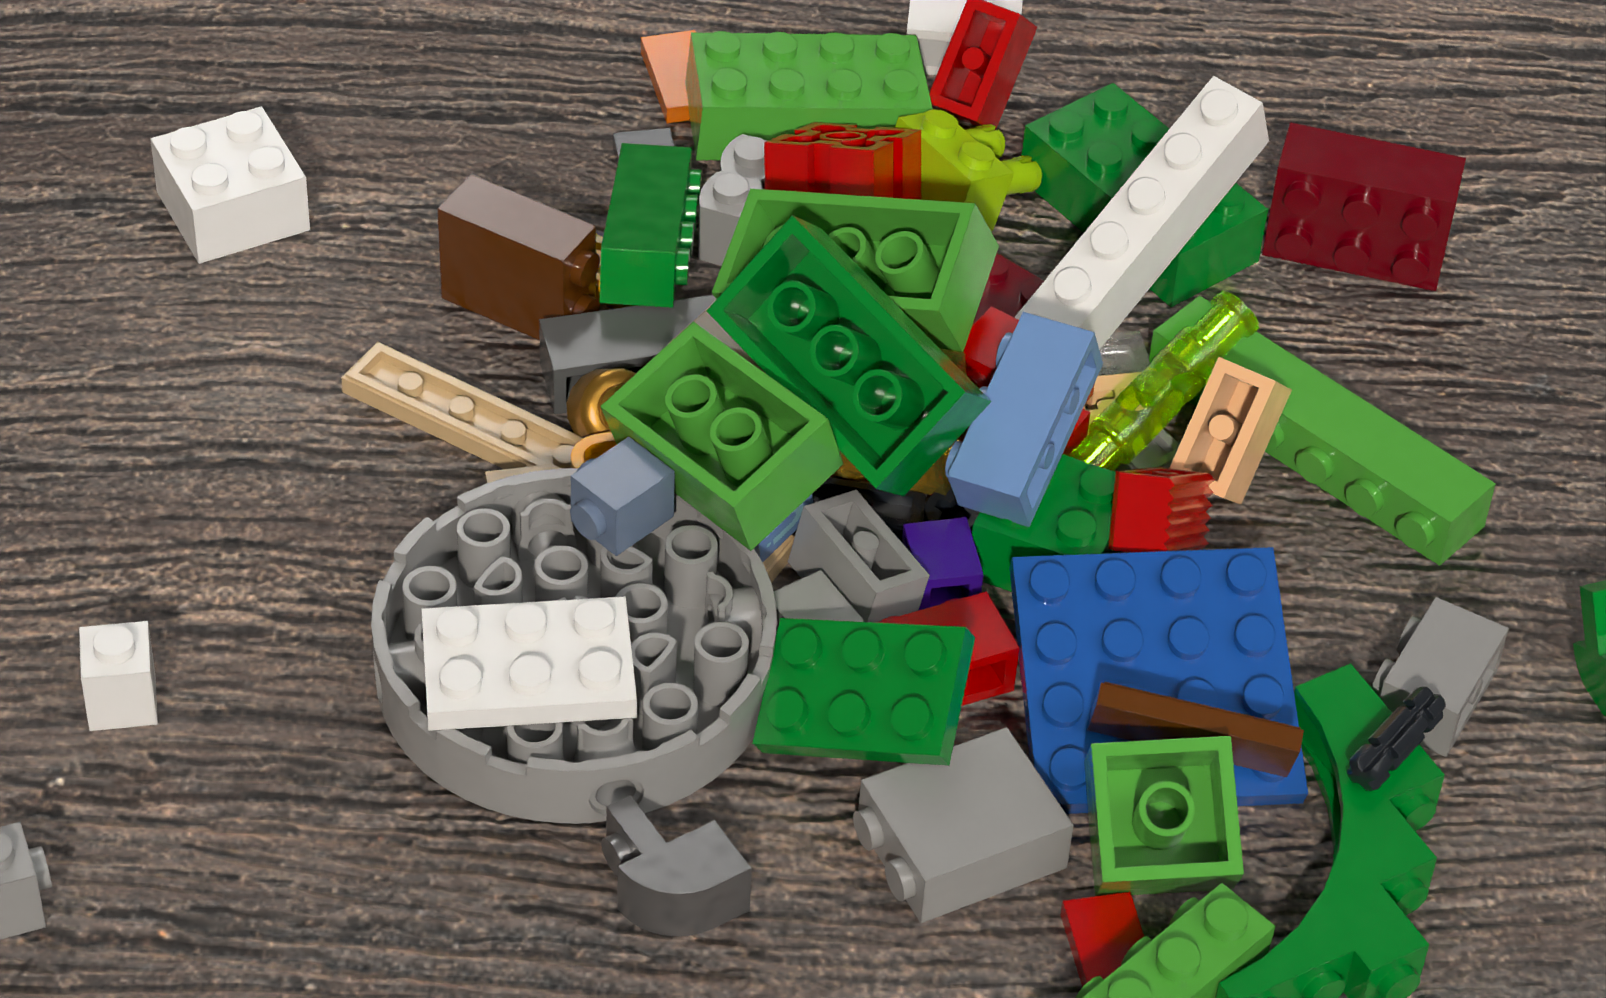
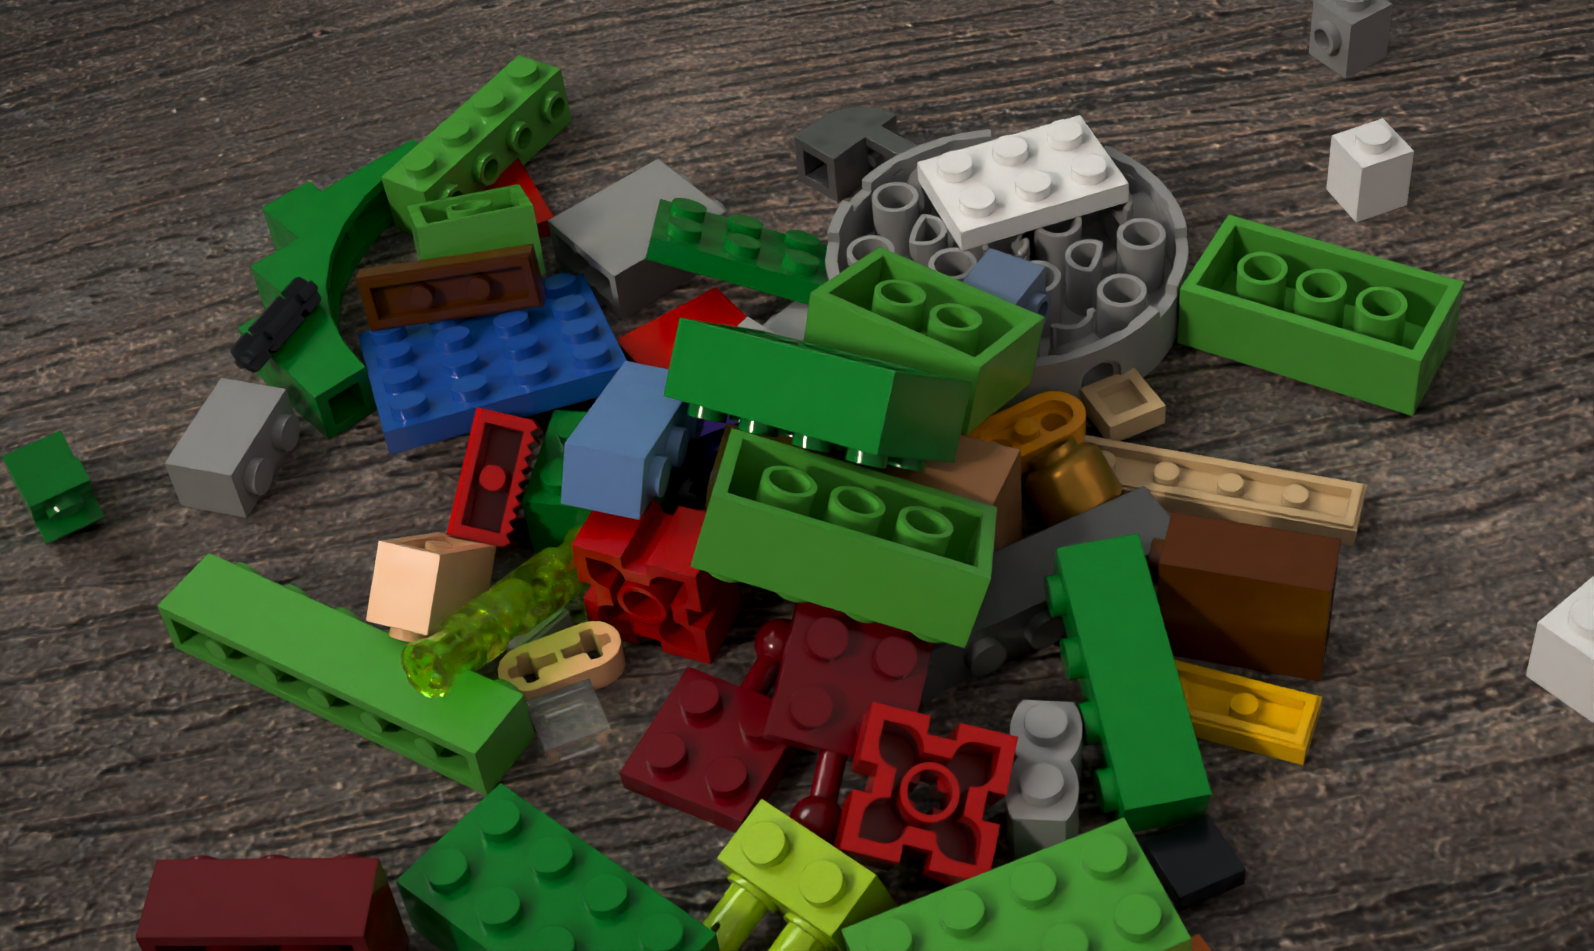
camera: 175 degrees right, 0 degrees up
(284, 506) = (1320, 313): none -> bright green brick
(1154, 212) = (537, 749): white brick -> none

